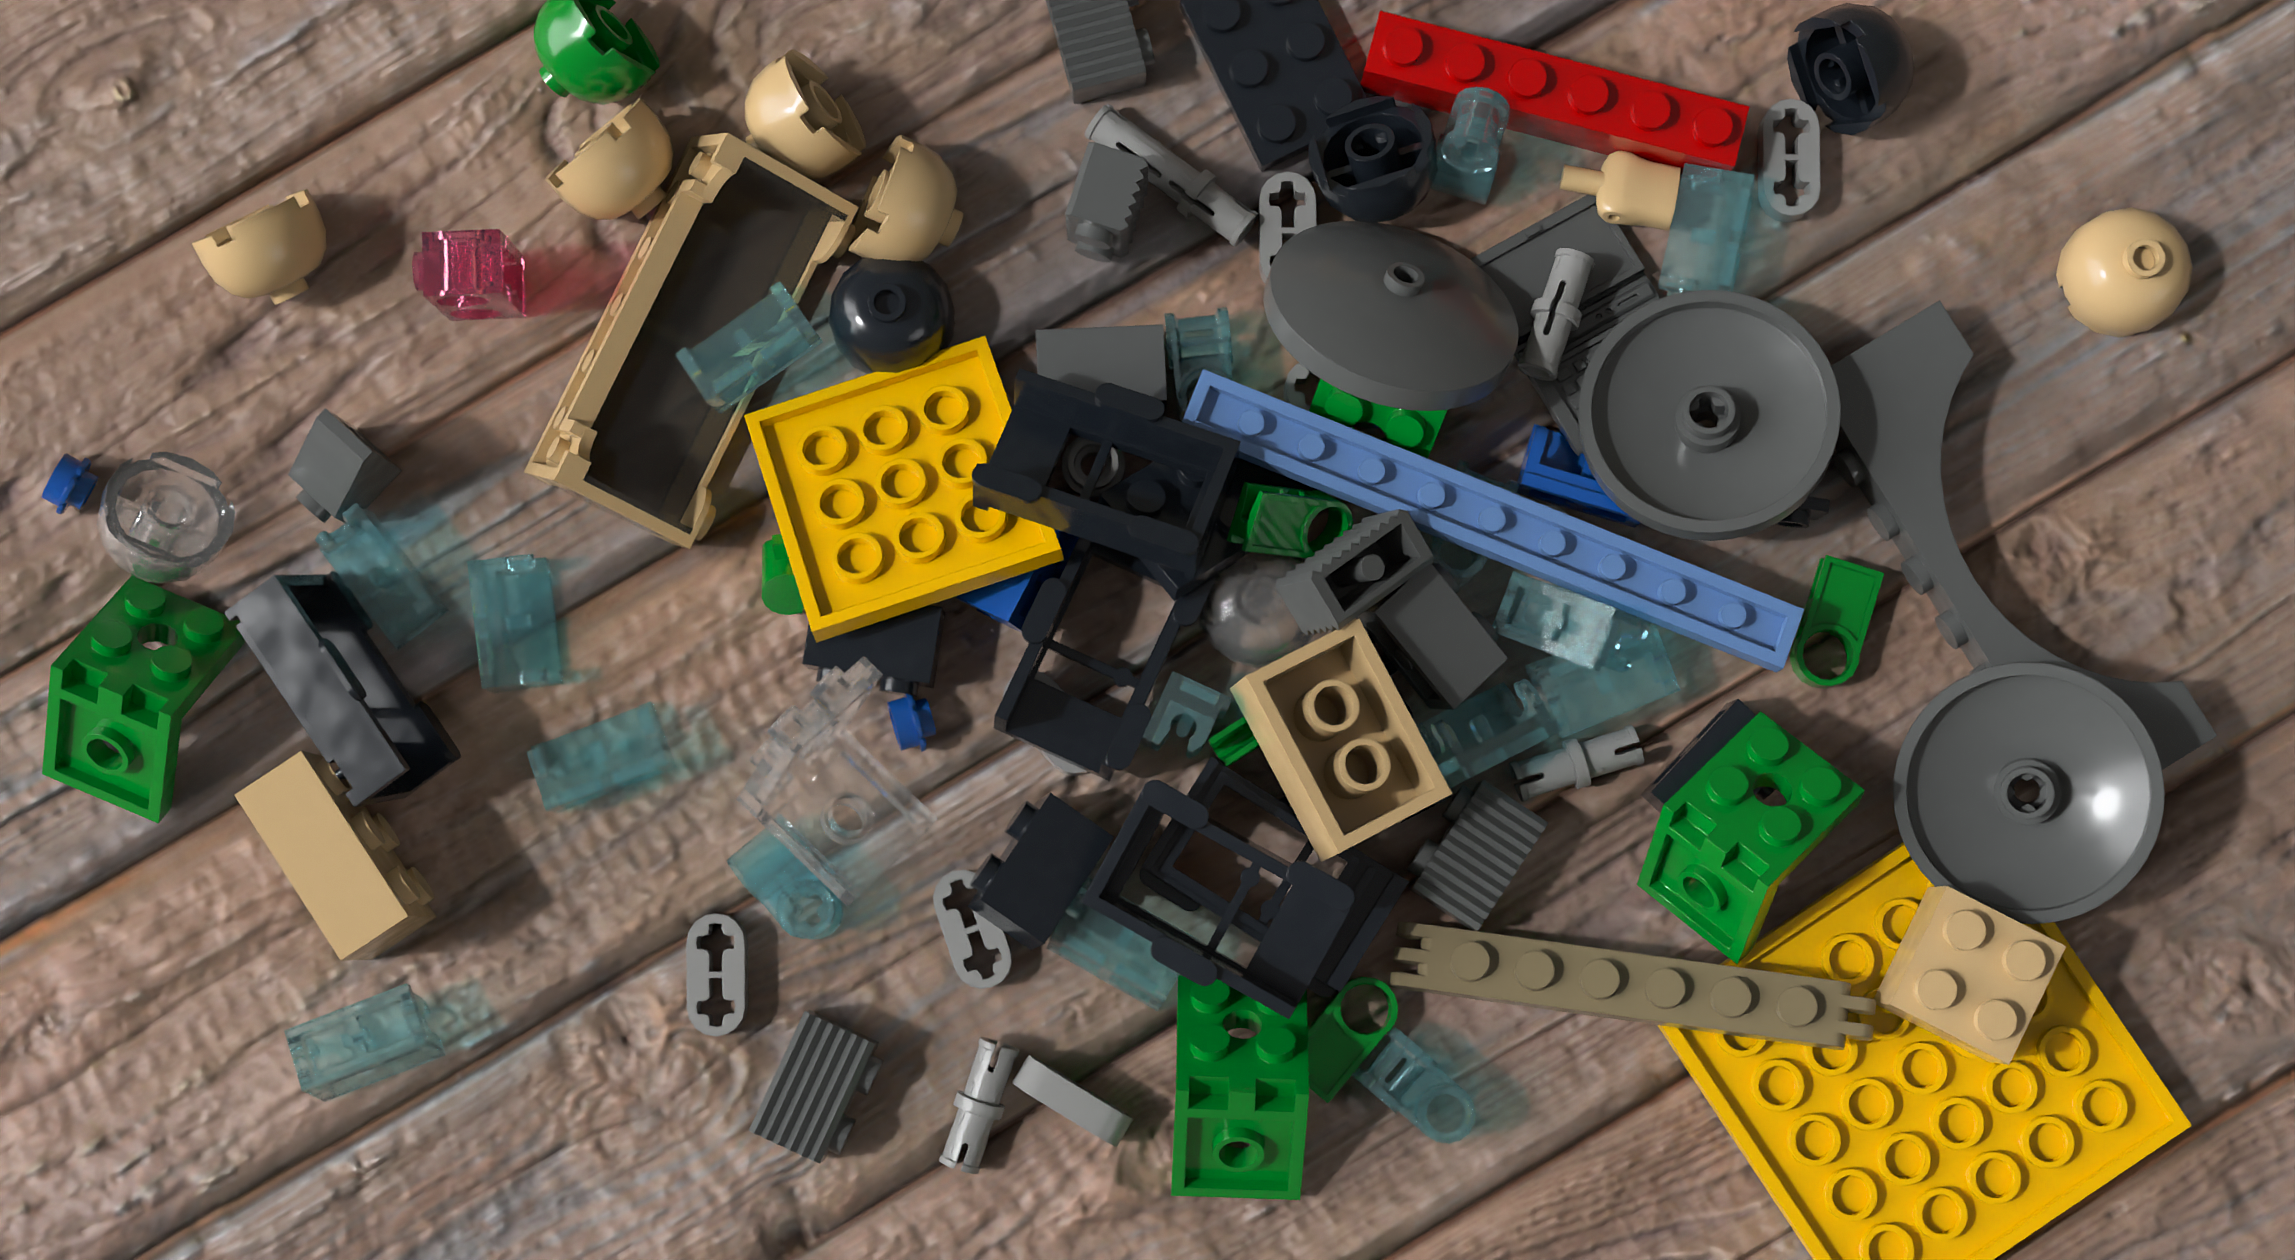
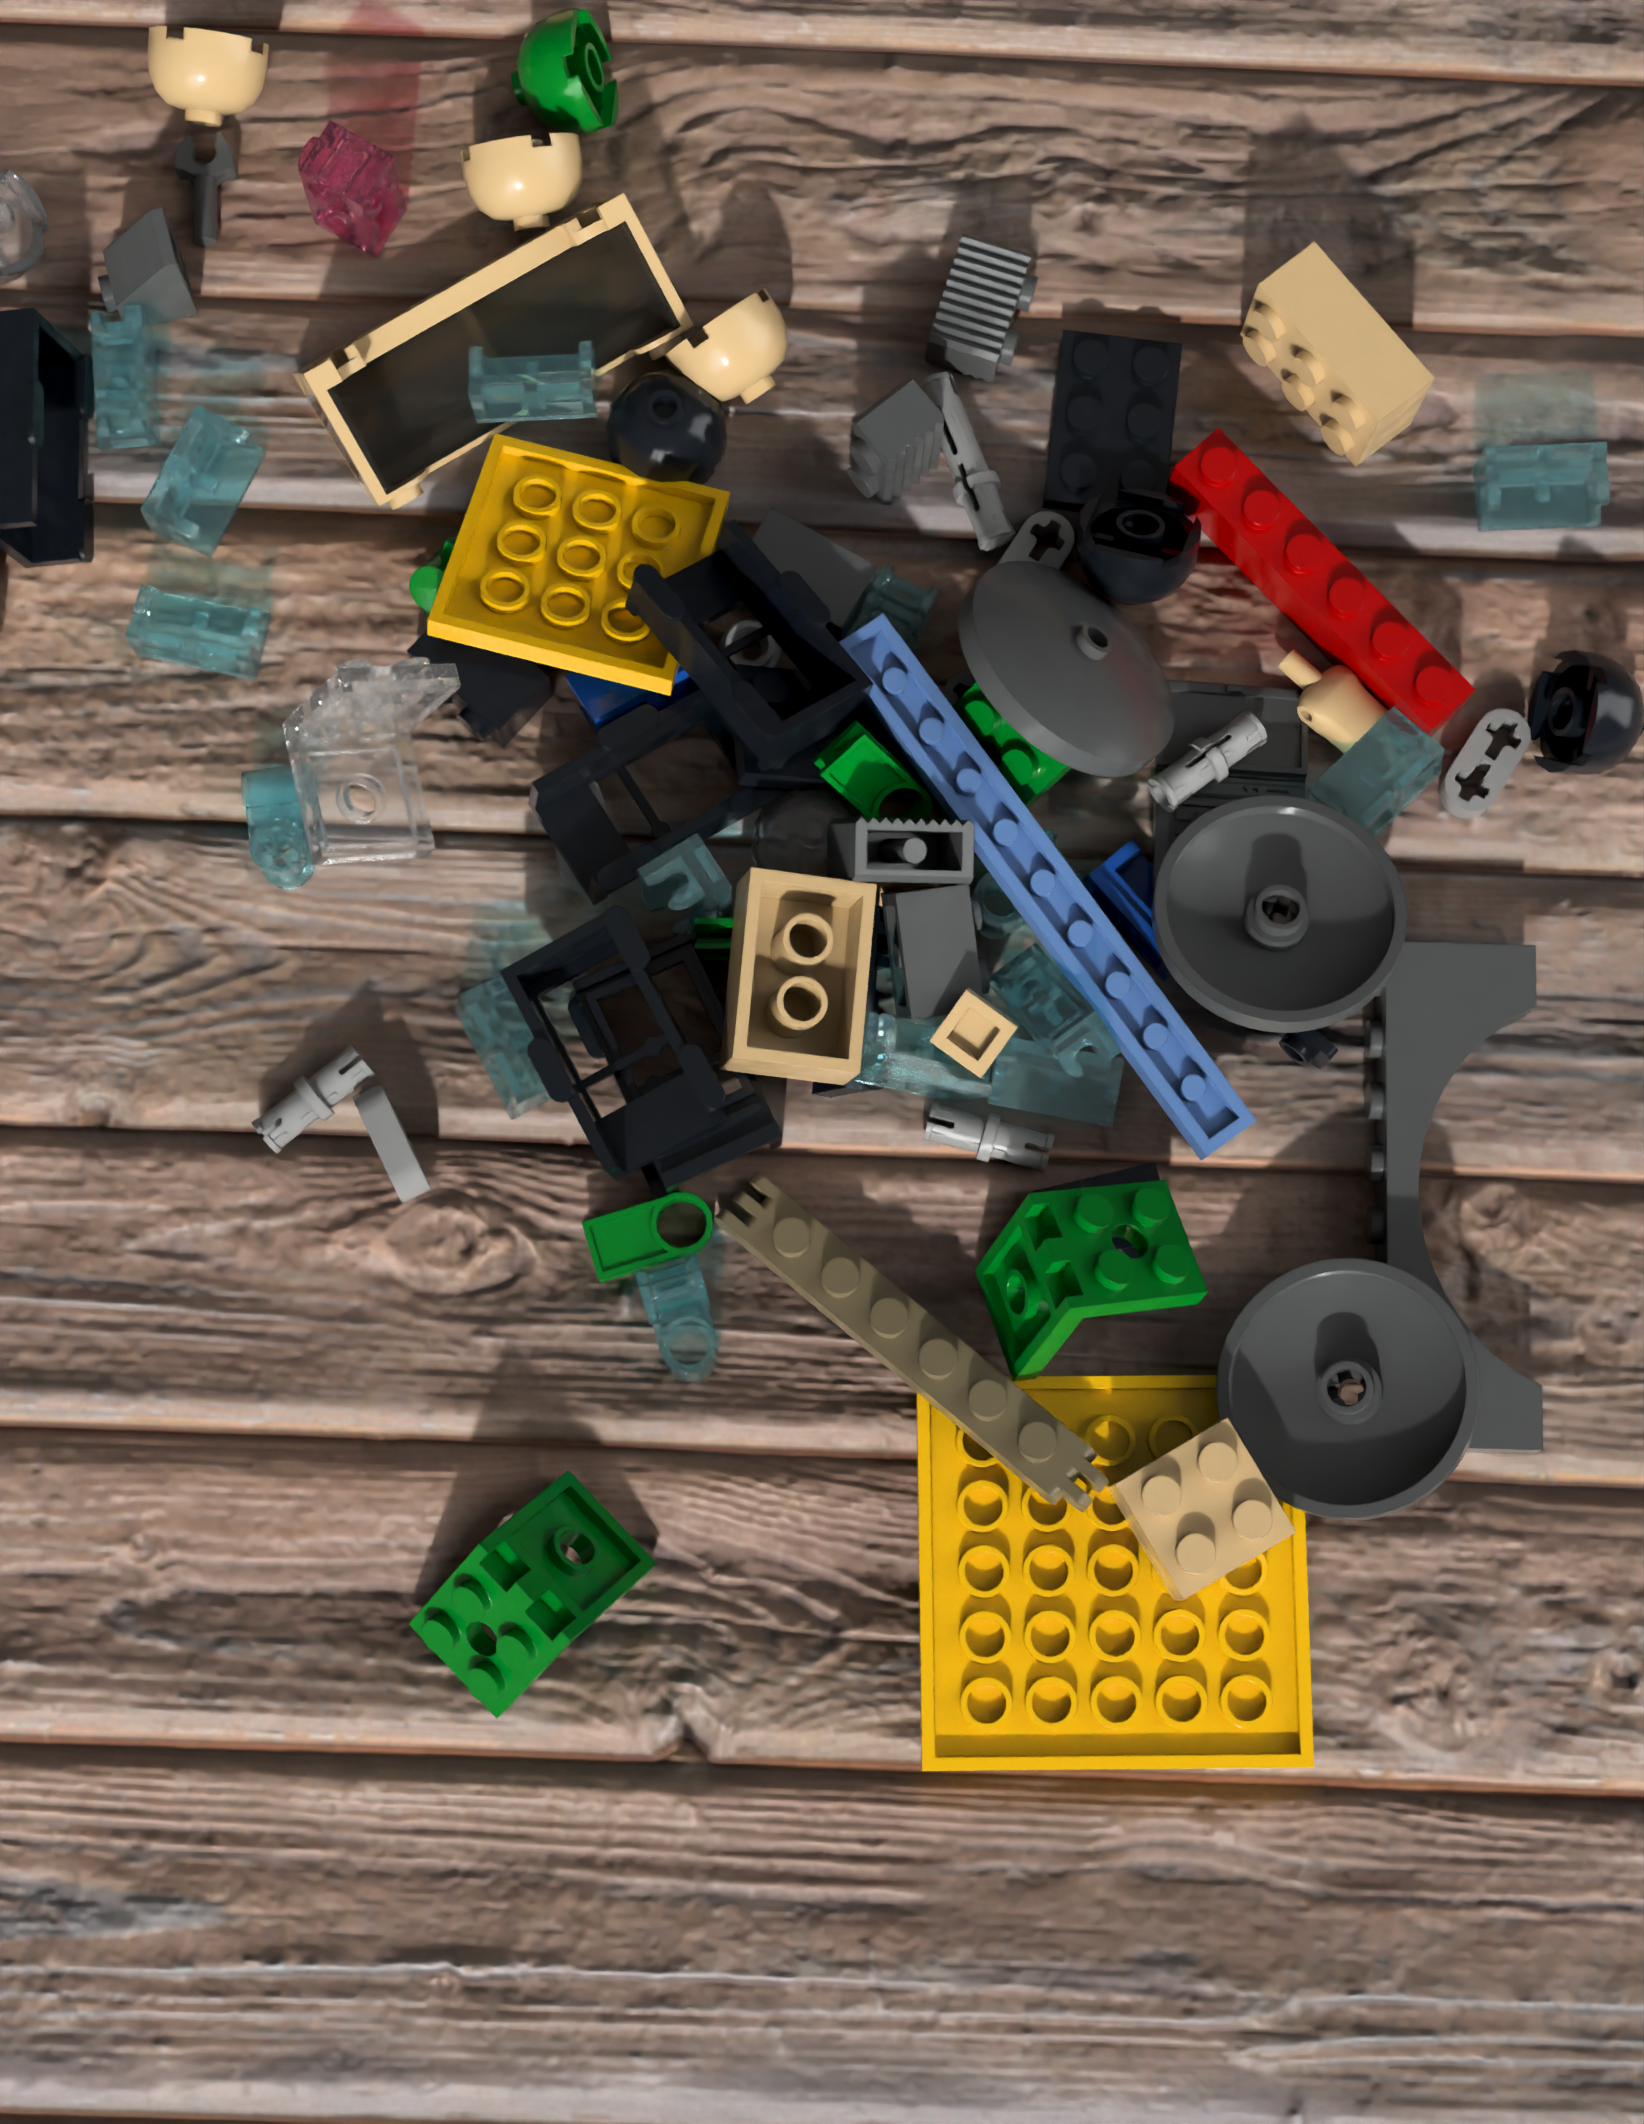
camera: 30 degrees right, 5 degrees down
(329, 347) = (206, 181): none -> dark grey bar
(701, 974) = (164, 852): light grey beam -> none
(799, 120) = (693, 231): tan cylinder -> none
(816, 1087) = (192, 998): dark grey brick -> none
(911, 722) = (466, 758): blue plate -> none
(958, 936) = (390, 952): light grey beam -> none
(1038, 870) = (480, 938): black brick -> none
(1238, 1093) = (530, 1217): green bracket -> none
(1470, 144) = (1224, 584): clear light blue piece -> none
(1476, 853) = (855, 1154): dark grey brick -> none
(1517, 687) = (974, 1032): none -> tan plate
(1839, 605) = (1292, 1152): green piece -> none

